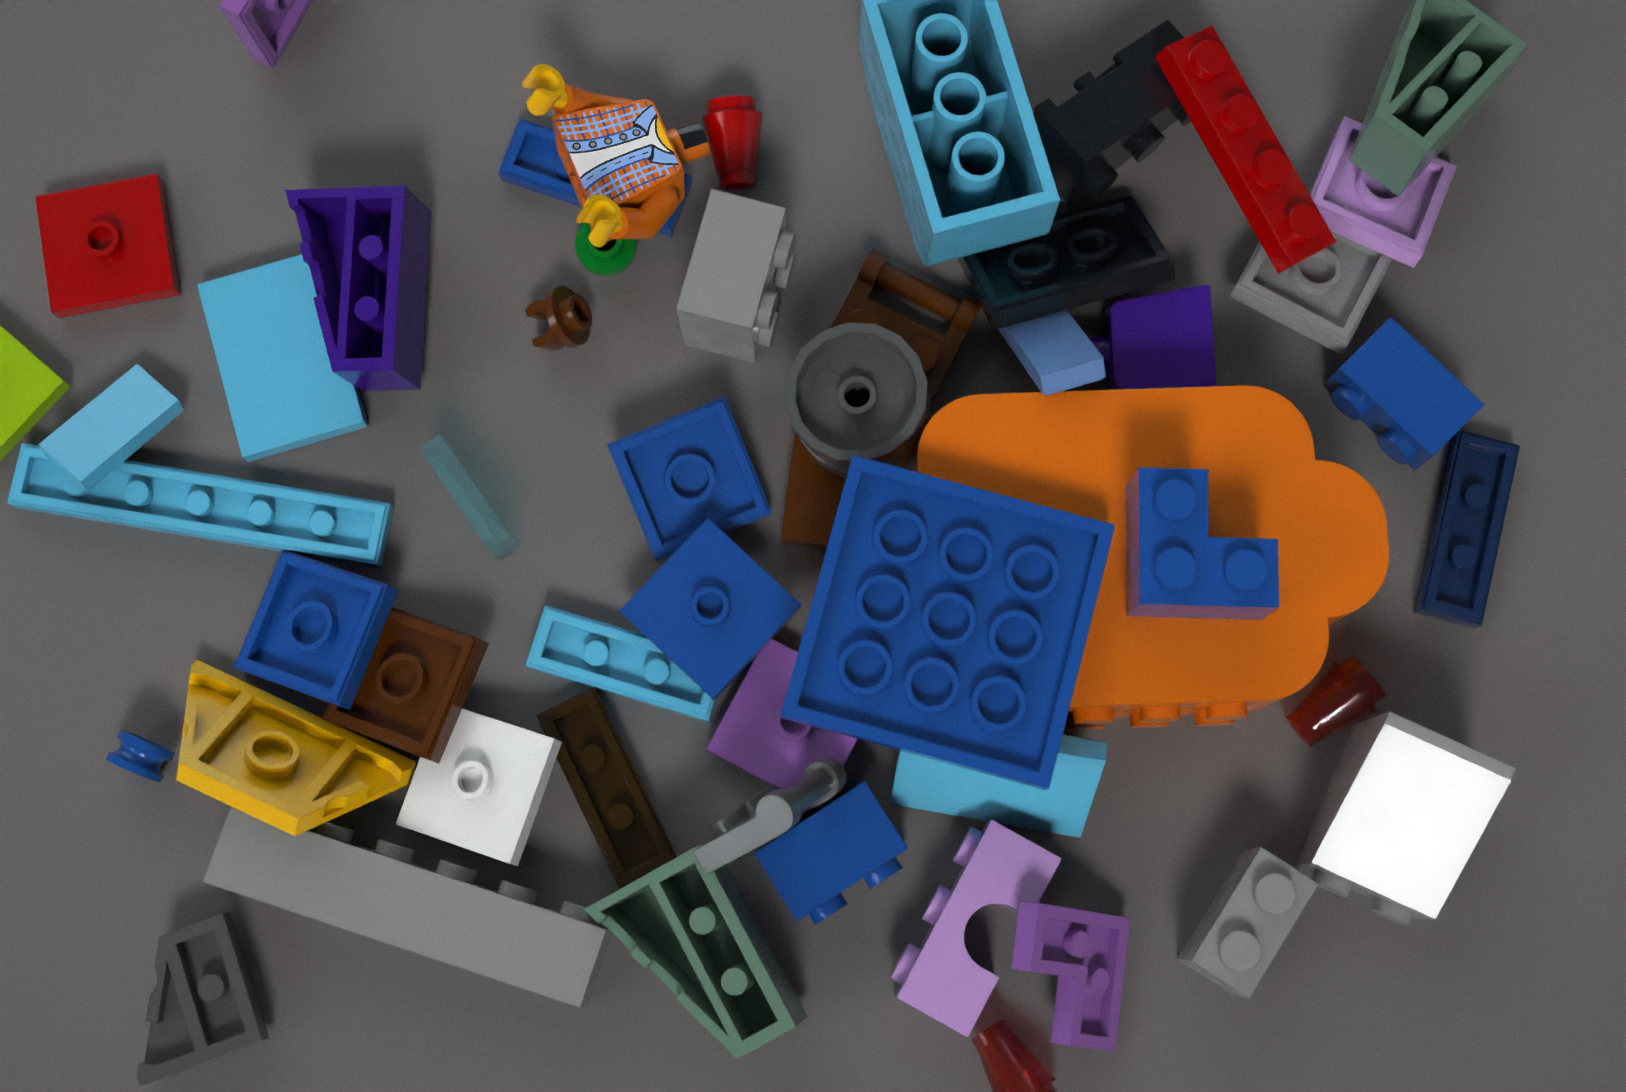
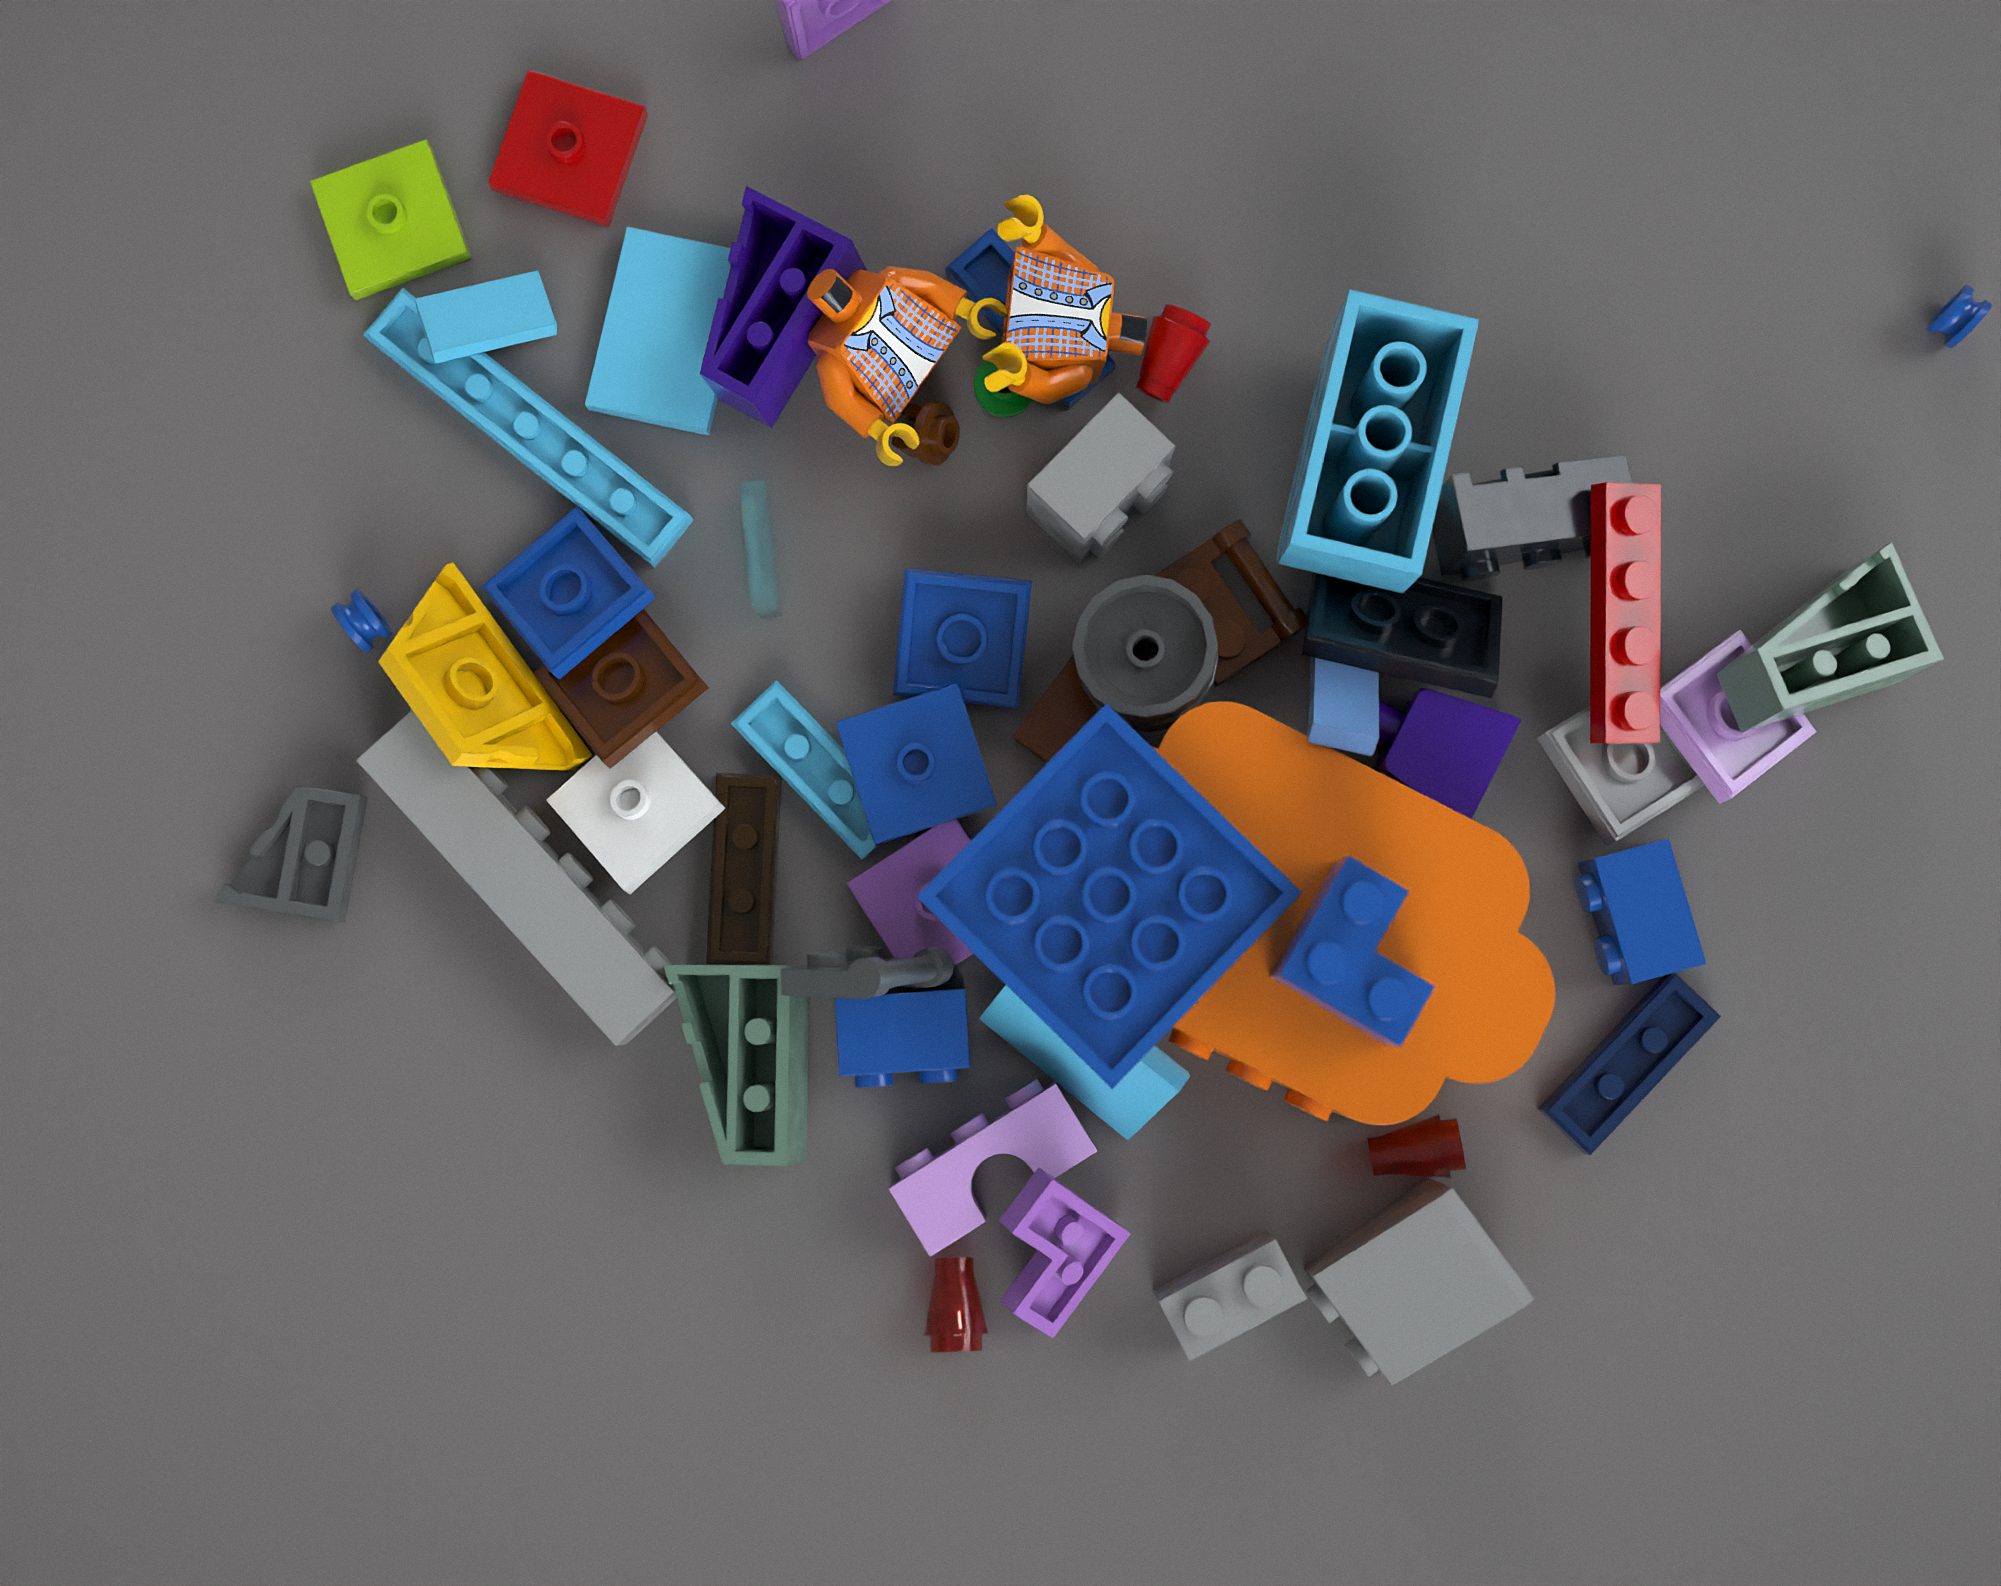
camera: 30 degrees right, 5 degrees up
(479, 261) = (883, 341): none -> torso

